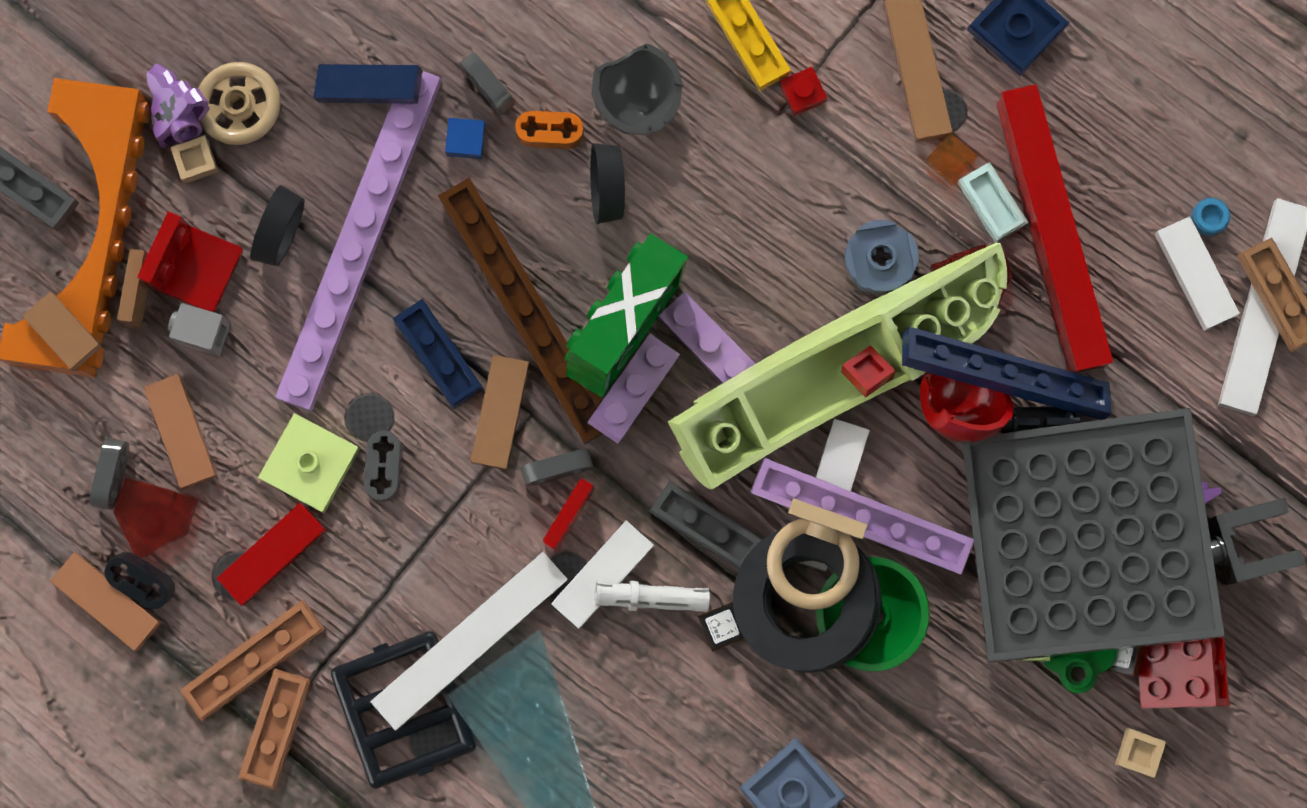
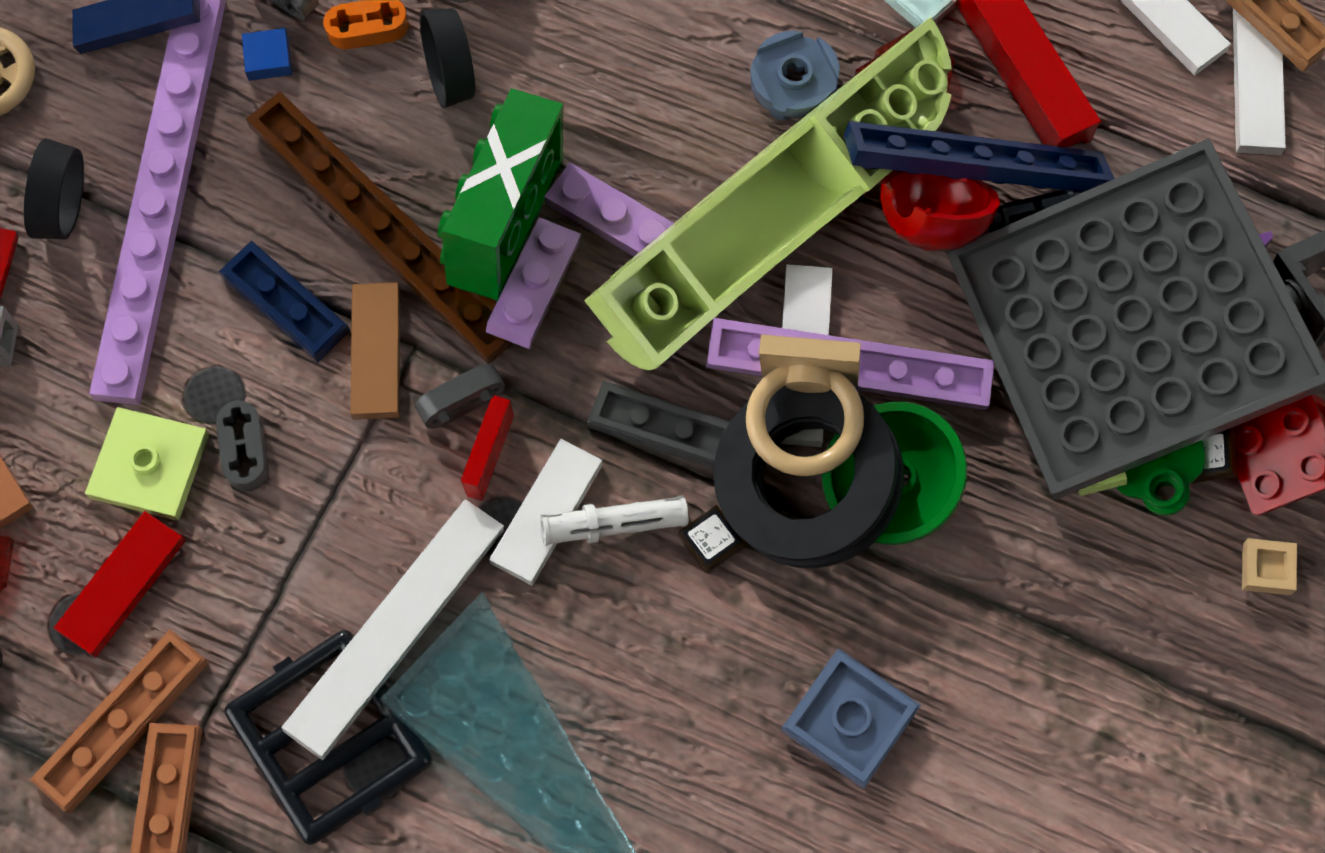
camera: 15 degrees left, 10 degrees down
(868, 371) = (813, 192): red plate -> none

